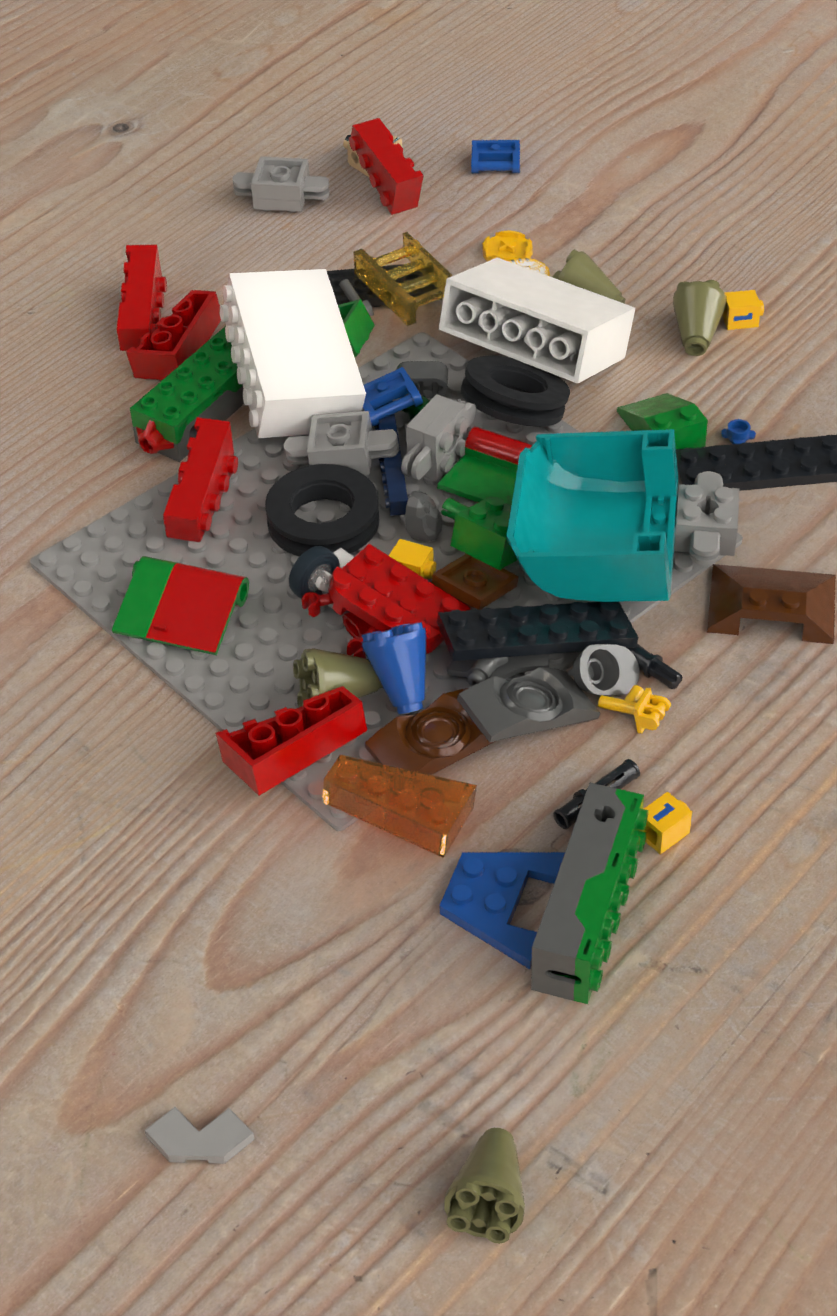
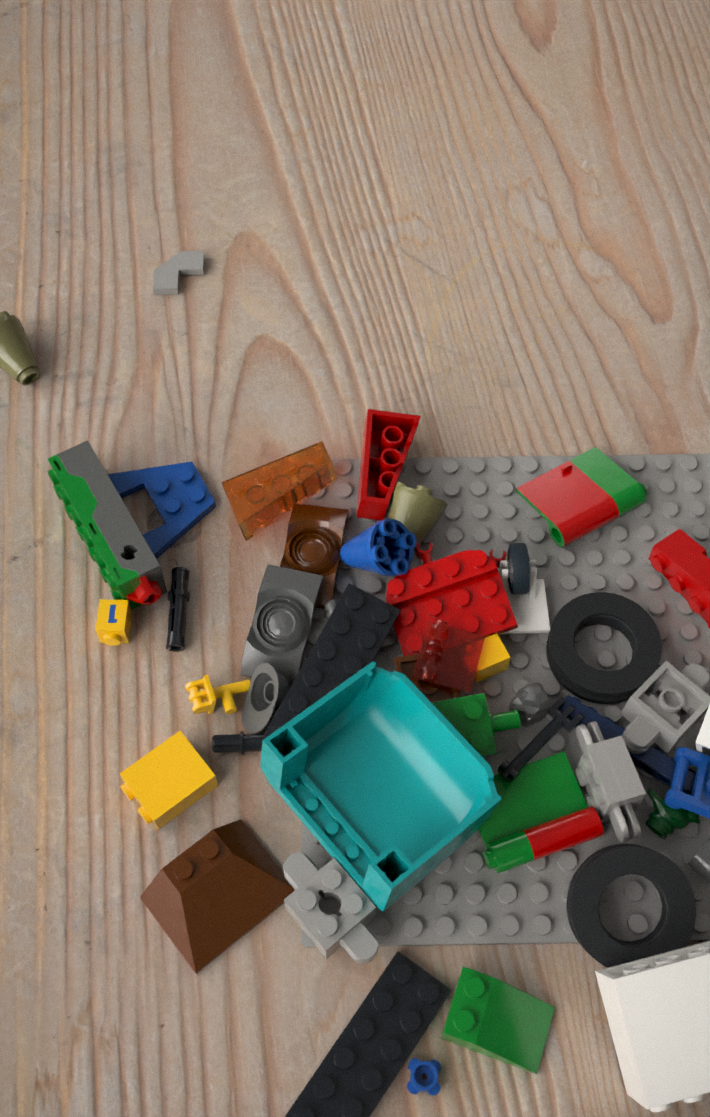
camera: 130 degrees right, 15 degrees up
(413, 483) = (510, 771): none -> black hinge
(445, 564) = (448, 656): none -> clear red hinge
(740, 681) = (168, 780): none -> yellow brick

